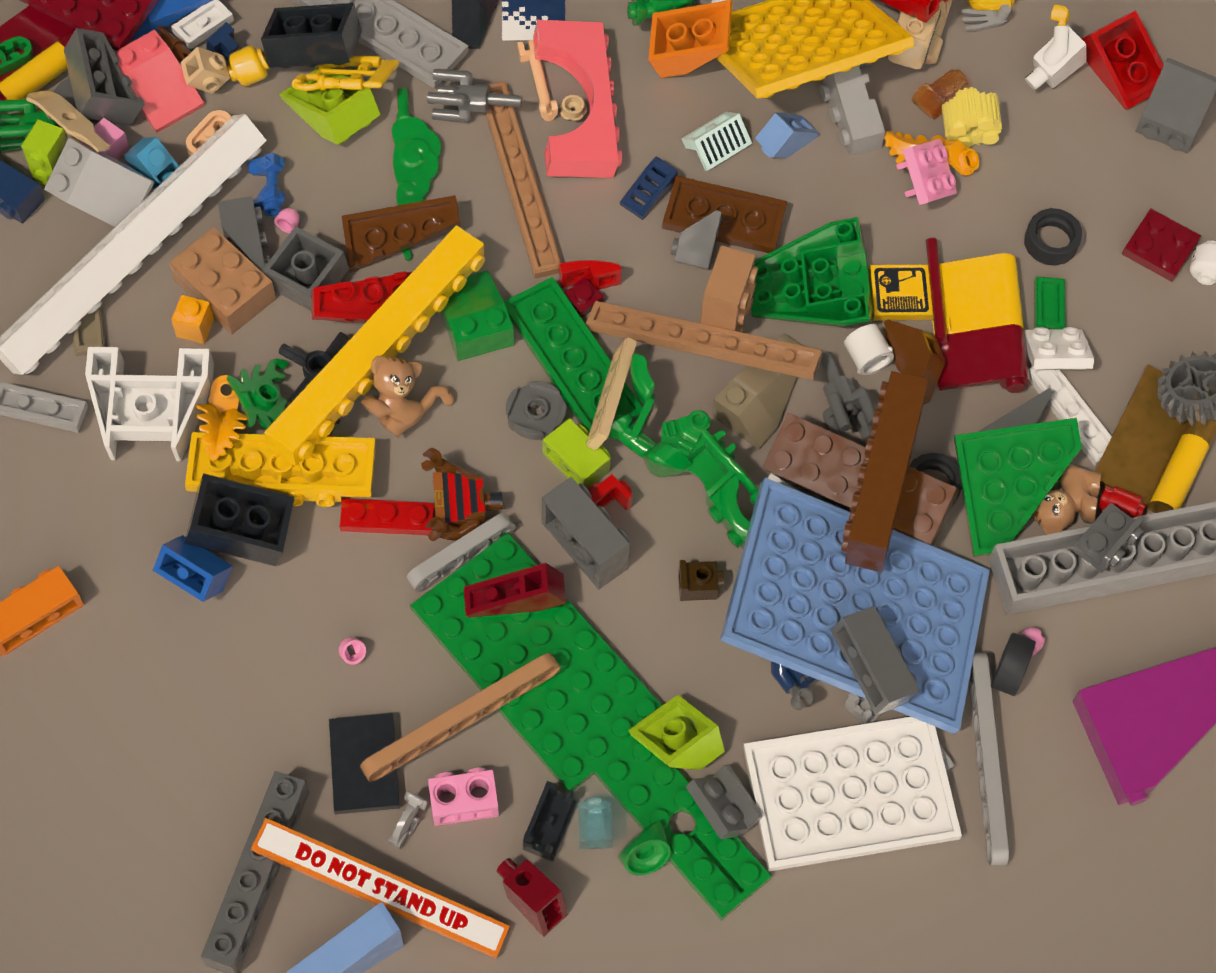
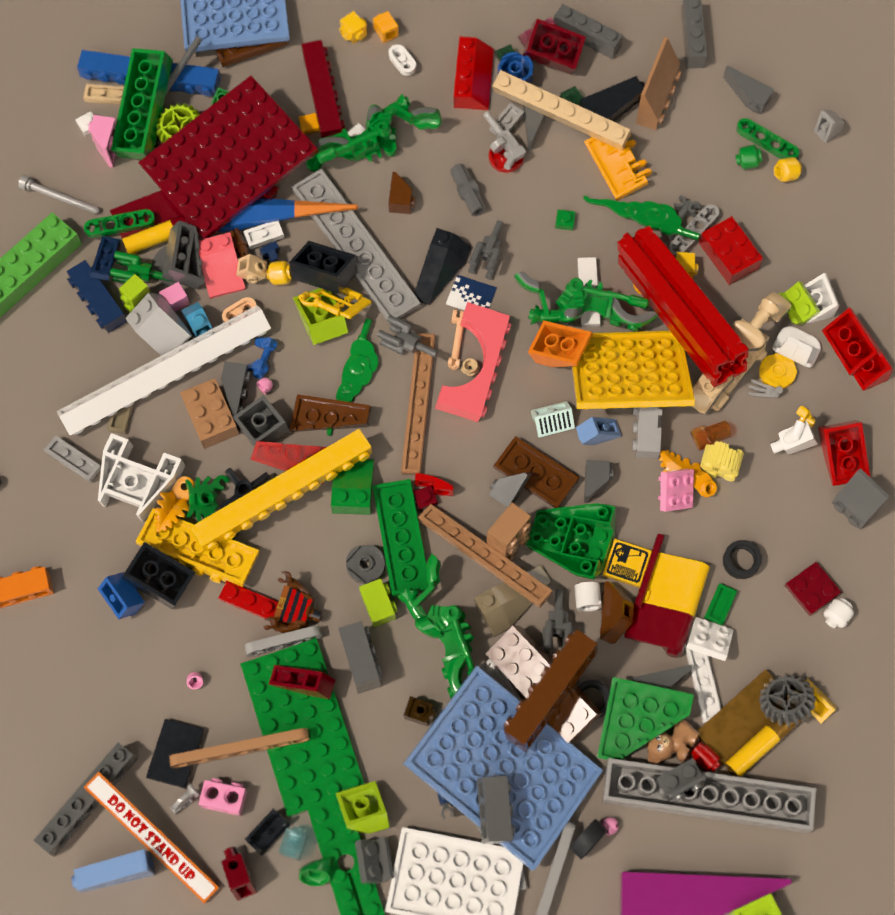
camera: 25 degrees right, 5 degrees up
(68, 118) = (152, 271): tan piece -> none
(192, 319) = (182, 433): light orange brick -> none
(394, 381) = (283, 518): medium nougat animal -> none
(609, 490) = (384, 633): red bracket -> none
(611, 394) = (411, 572): tan tile -> none
(659, 173) = (492, 433): dark blue slope -> none
(810, 194) = (596, 478): none -> dark grey slope

